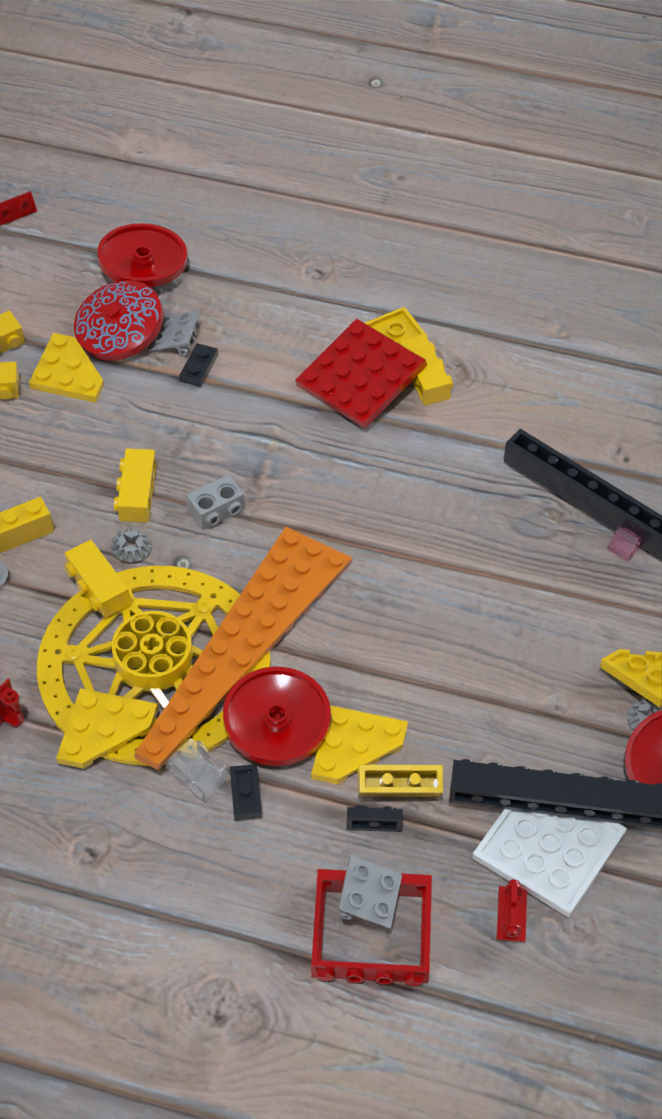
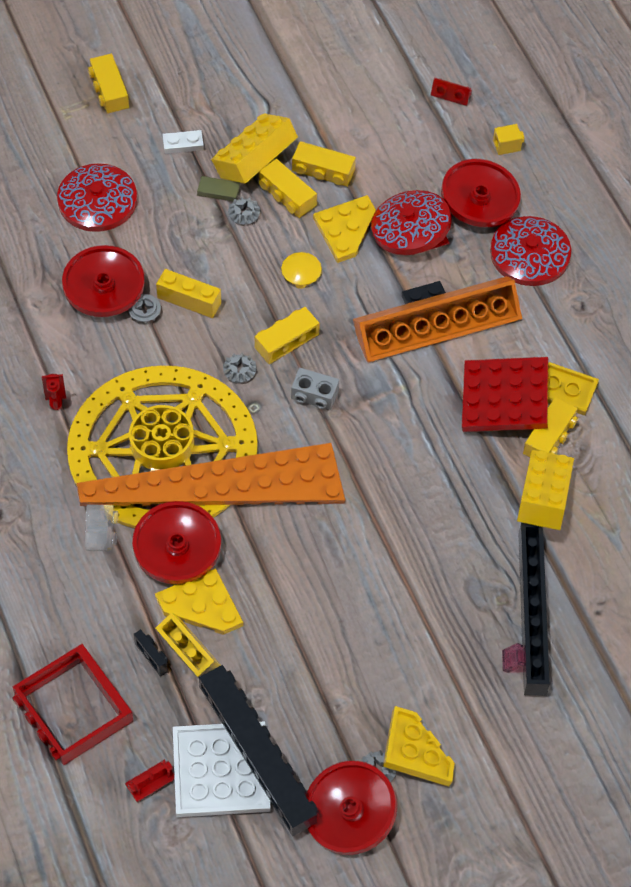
camera: 50 degrees right, 5 degrees up
(76, 430) = (301, 269): none -> yellow dish
(97, 579) = (189, 367): yellow brick -> none
(102, 726) = (86, 452): yellow plate -> none
(106, 205) = (508, 139): none -> yellow brick
(177, 332) = (437, 263): light grey hinge -> none
(230, 267) = (530, 250): none -> red dish
(233, 370) = (438, 318): none -> orange slope
(245, 792) = (109, 566): black plate -> none
(369, 892) = (85, 682): light grey hinge -> none
(488, 405) = (545, 489): none -> yellow brick

